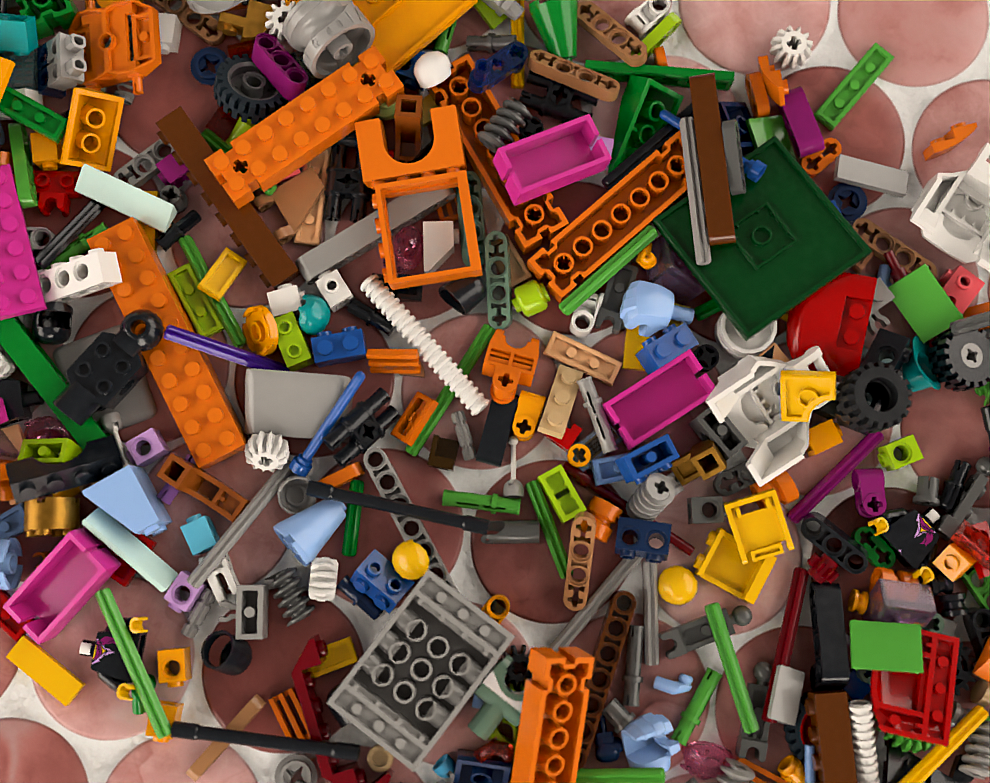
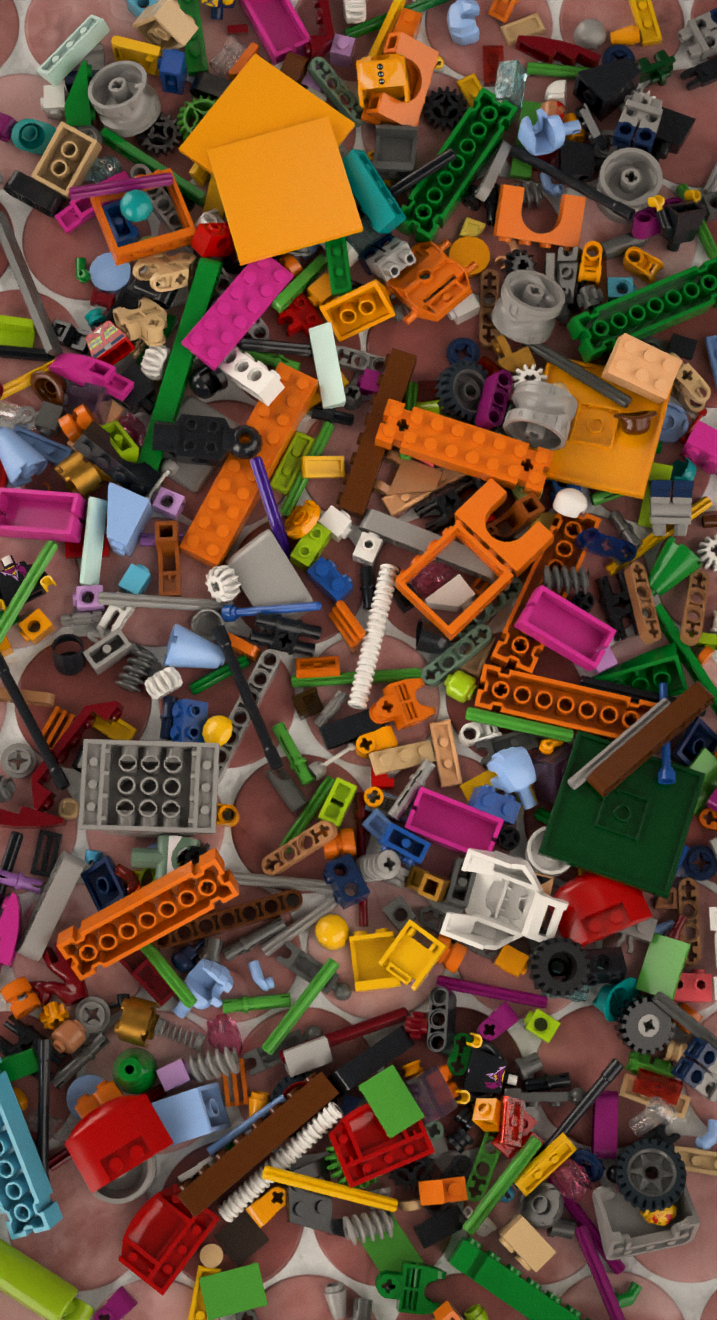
camera: 55 degrees right, 5 degrees down
(314, 314) = (339, 547): teal hair -> none
(733, 157) = (662, 752): dark grey beam -> none
(804, 391) = (528, 916): yellow tile -> none

